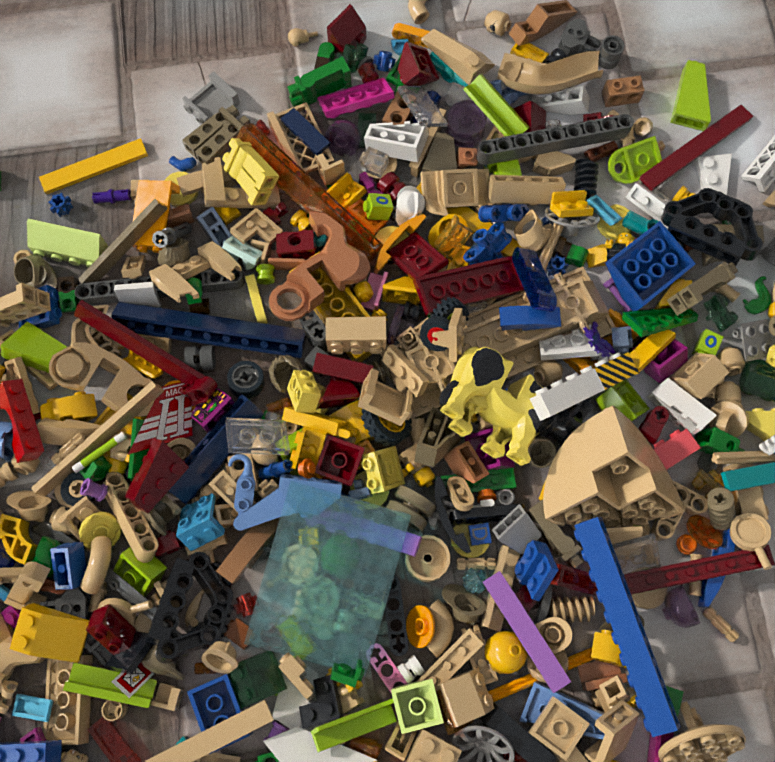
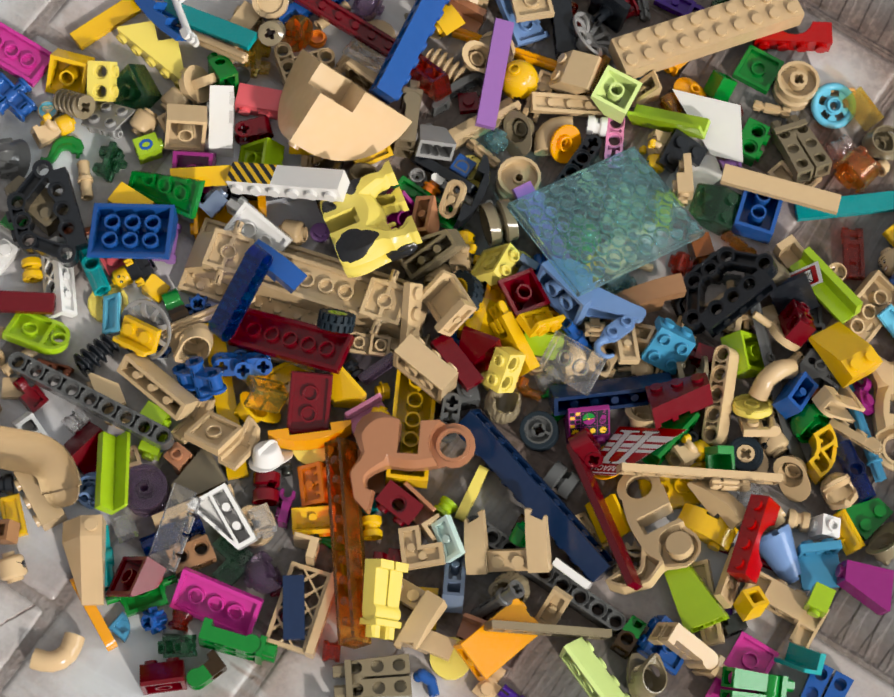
camera: 145 degrees left, 5 degrees down
(93, 489) = (731, 432): medium lavender bush -> none
(99, 452) = (707, 458): lime bar -> none
(220, 657) = (728, 235): tan piece -> none
(306, 468) = (554, 308): orange plate -> none
(346, 675) = (647, 150): green bracket -> none
(378, 206) = (296, 478): lime brick -> none
(440, 334) = (358, 300): tan plate -> none
(536, 569) = (447, 104): blue plate -> none
(600, 345) = (239, 208): dark purple piece -> none
(708, 283) = (113, 179): dark tan hips -> none

